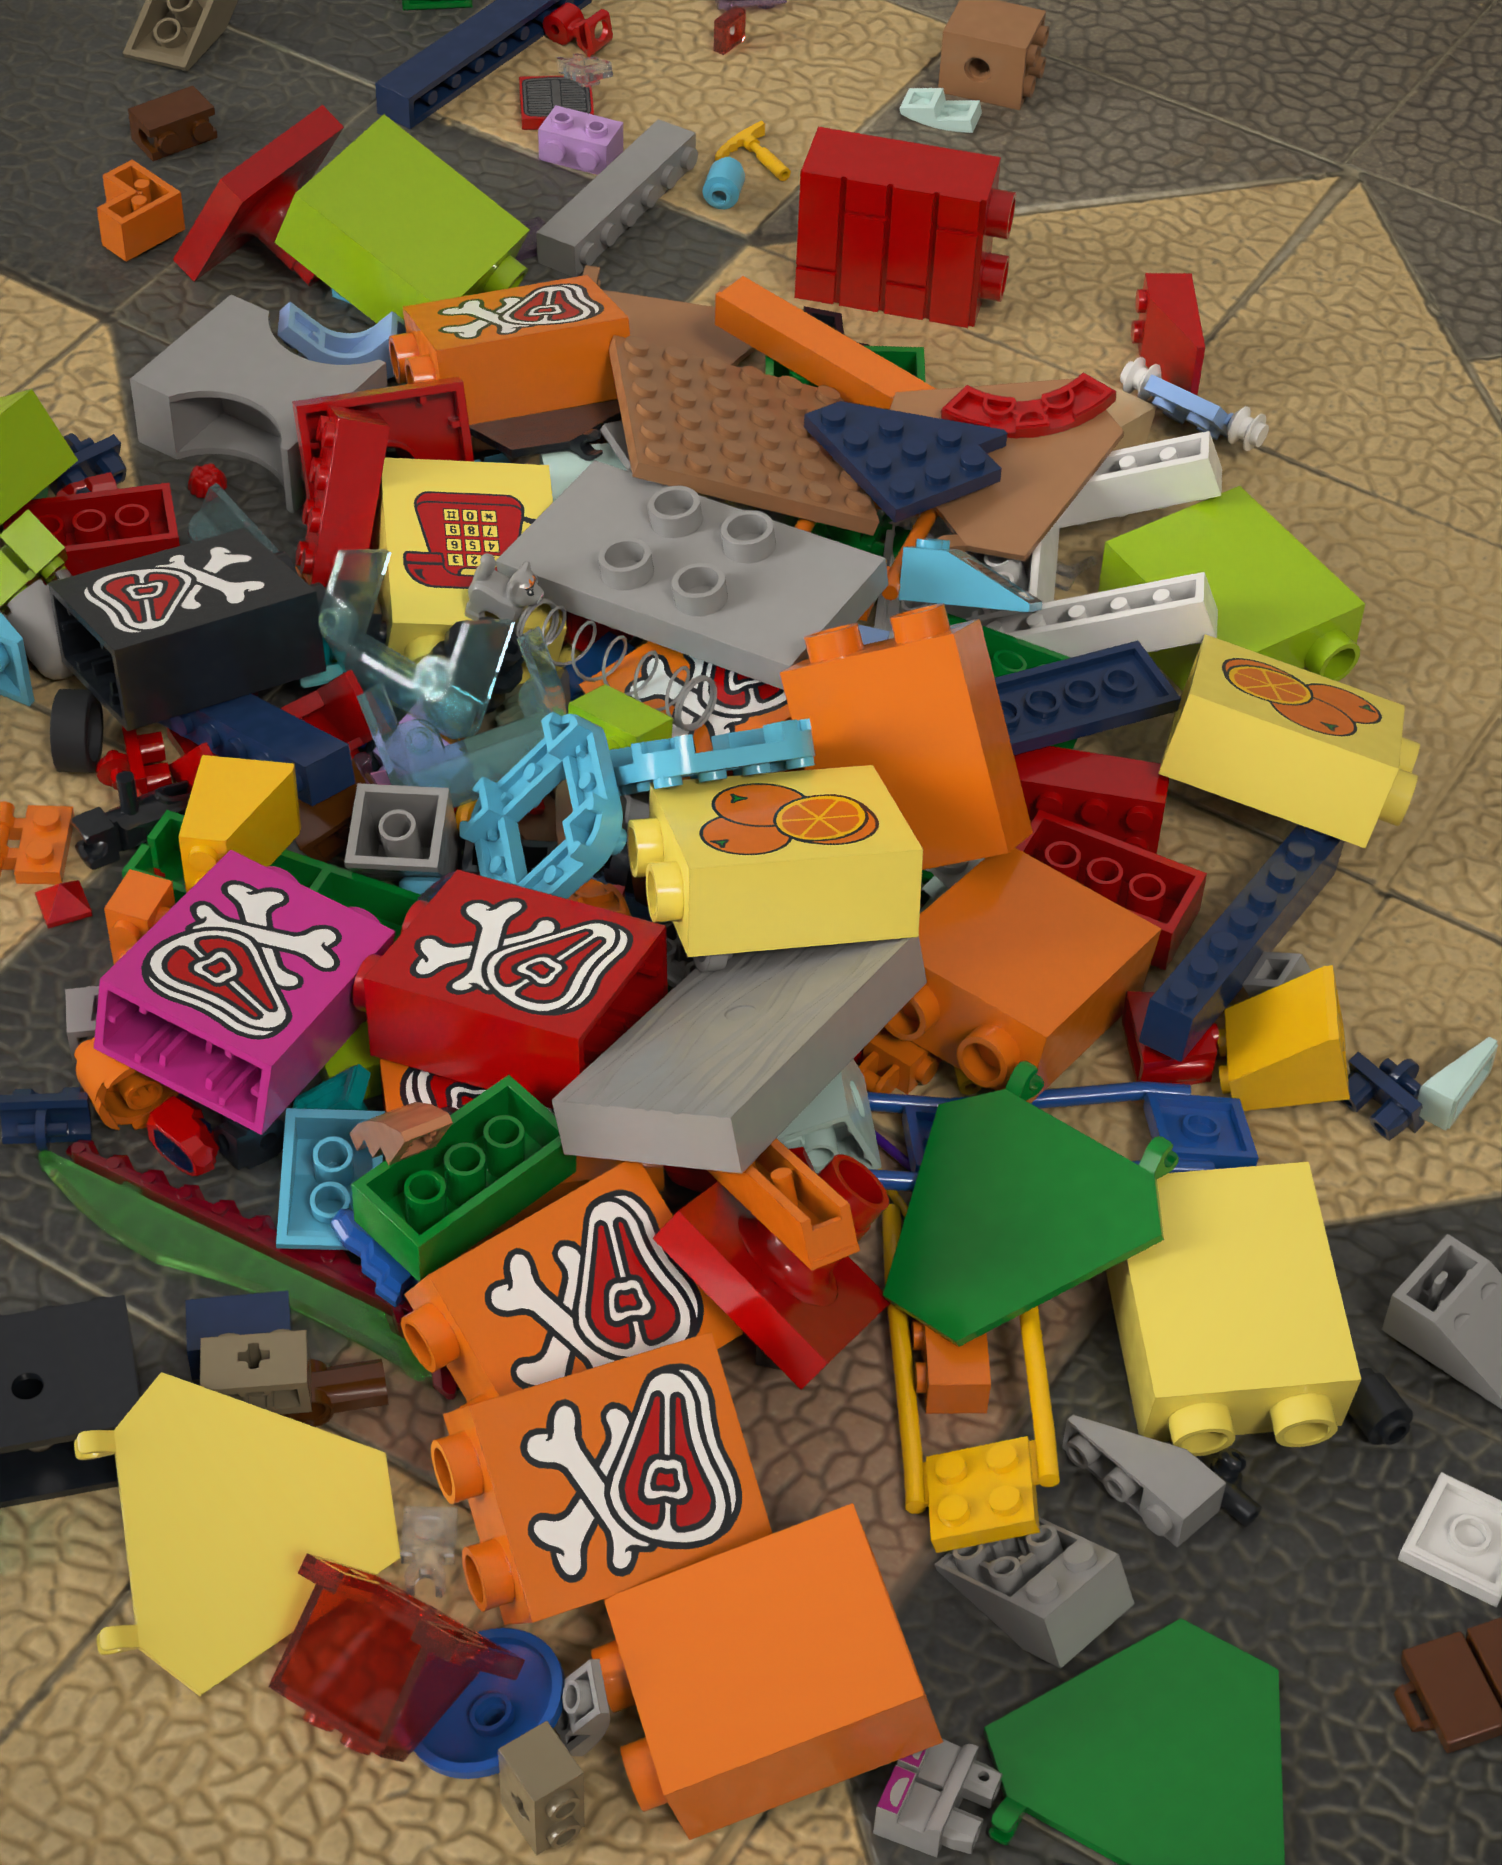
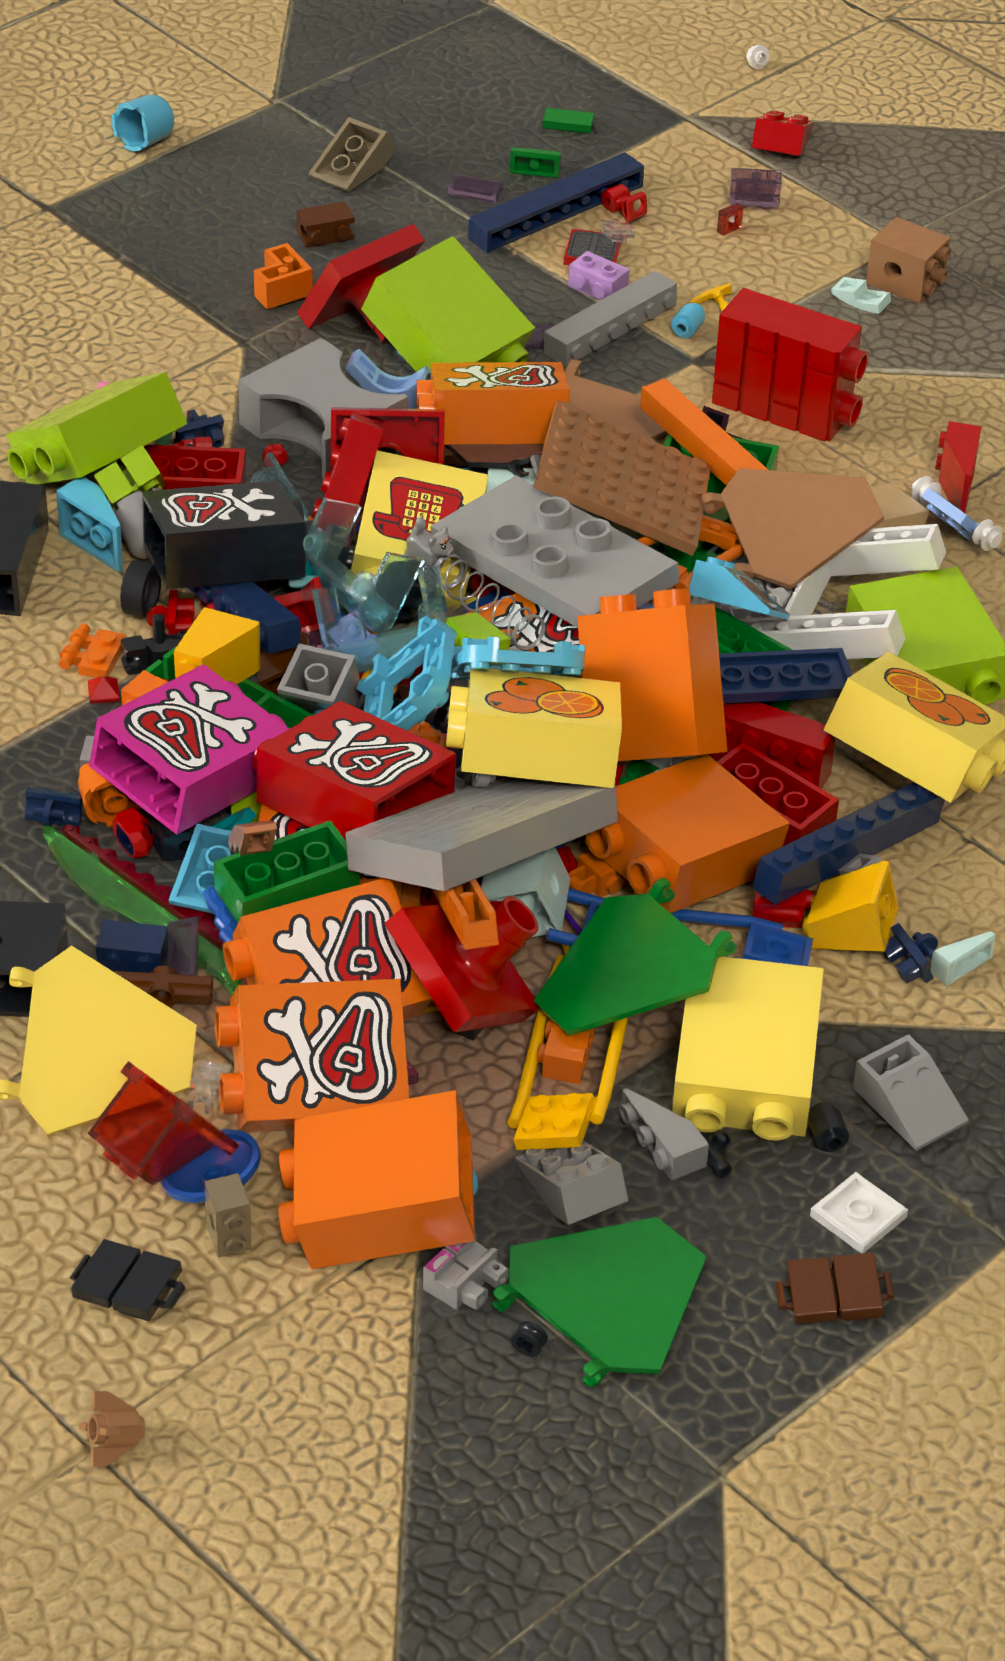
camera: 15 degrees right, 5 degrees down
(260, 1369) = (135, 961): dark tan brick -> none
(321, 1313) = (183, 945): none -> tile
(364, 39) = (475, 188): none -> clear purple tile
(584, 1710) = (266, 1179): light grey slope -> none
(907, 458) = (729, 509): dark blue wing -> none
(1051, 414) = (808, 496): red tile -> none

